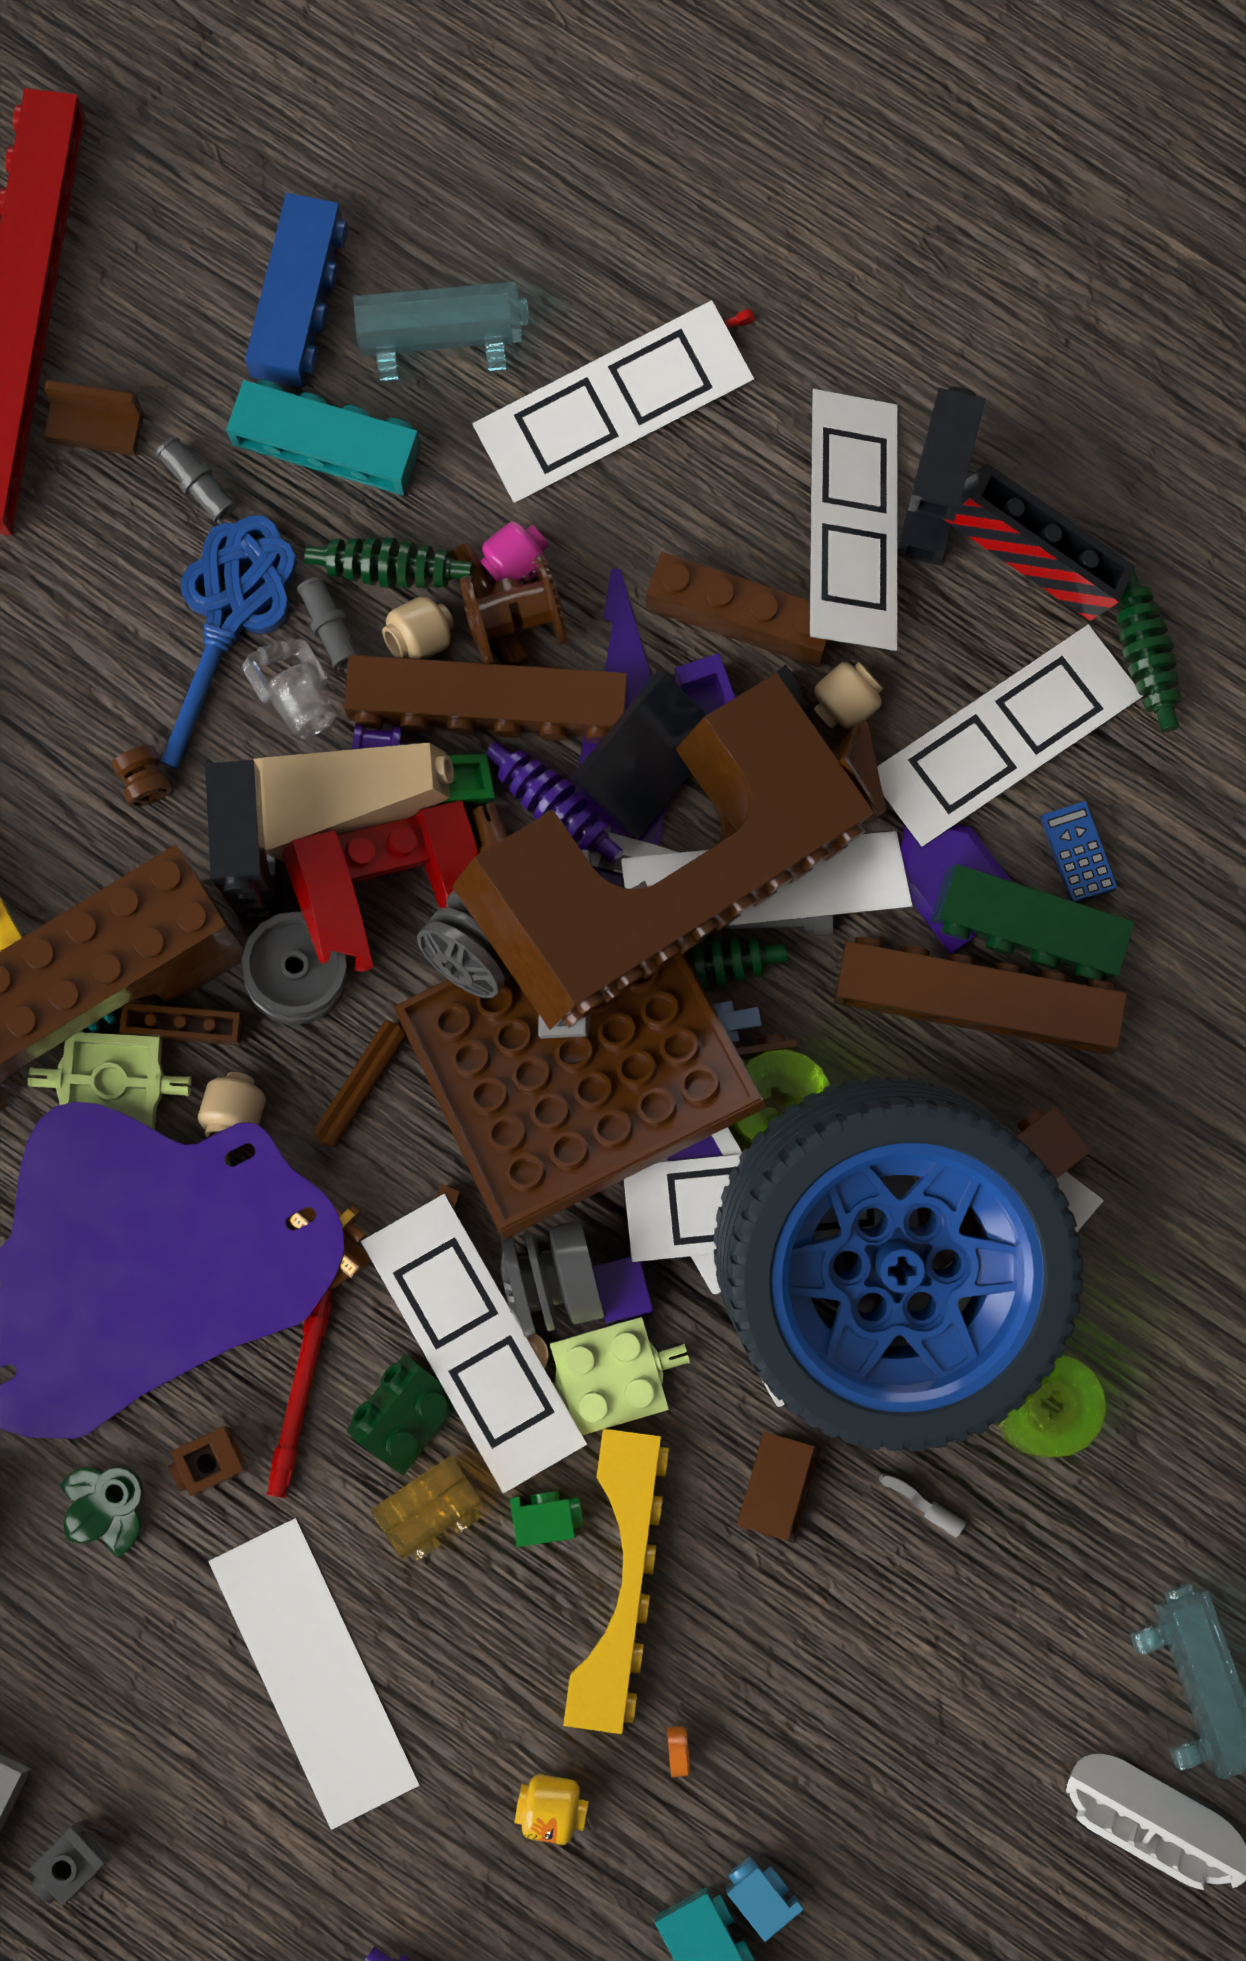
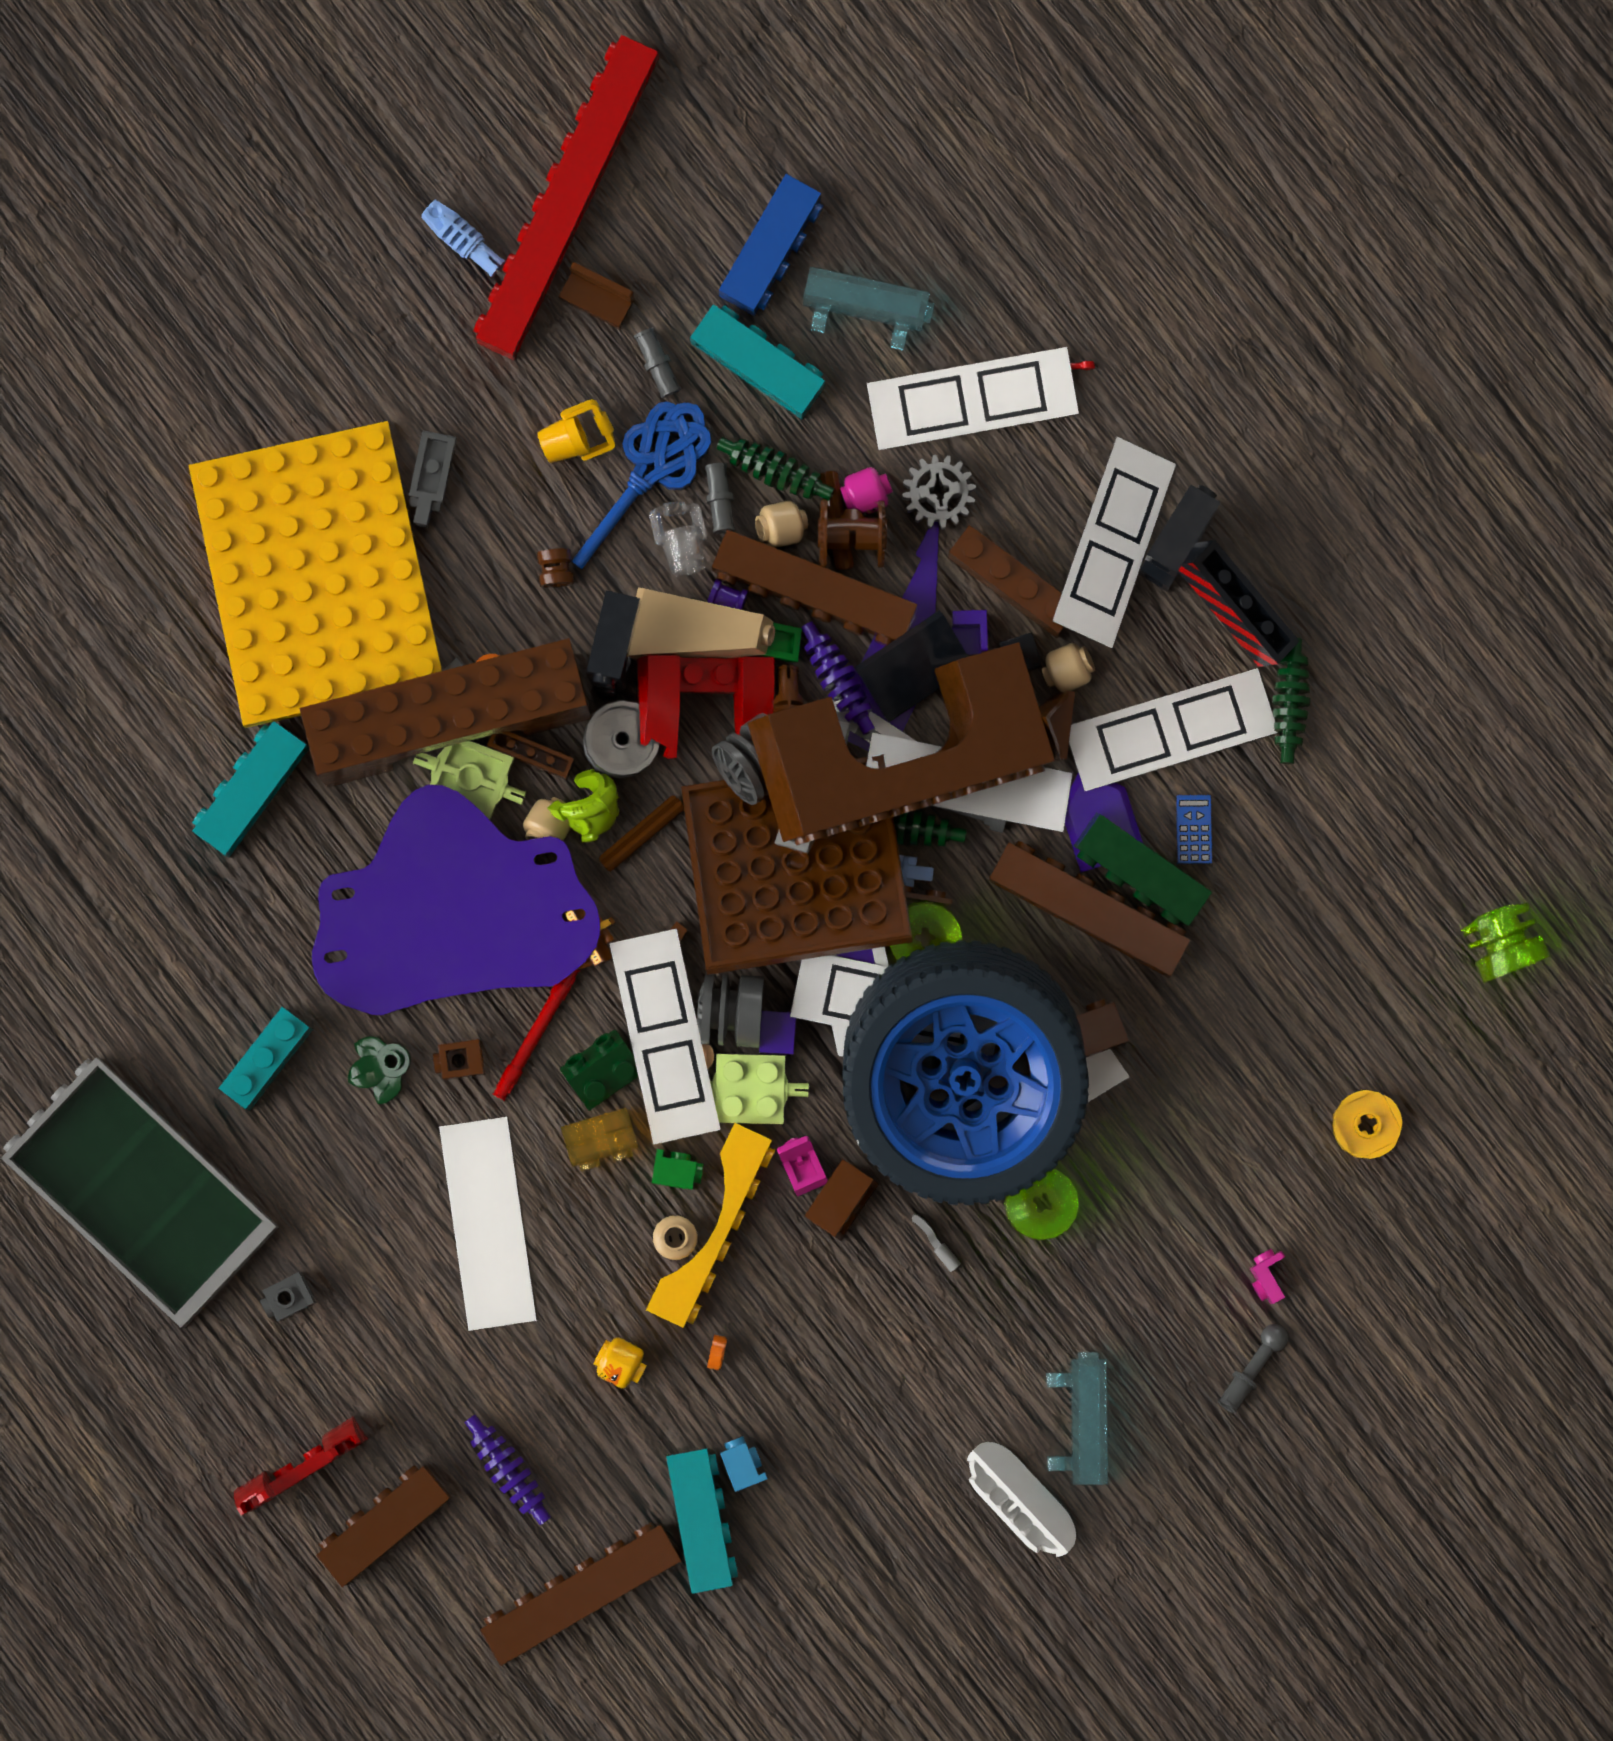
camera: 15 degrees right, 5 degrees up
(107, 606) = (568, 439): none -> yellow piece
(286, 1075) = (594, 813): none -> lime helmet
(580, 1625) = (672, 1227): none -> tan head
(593, 537) = (923, 494): none -> light grey gear
(711, 1457) = (802, 1165): none -> dark pink bracket

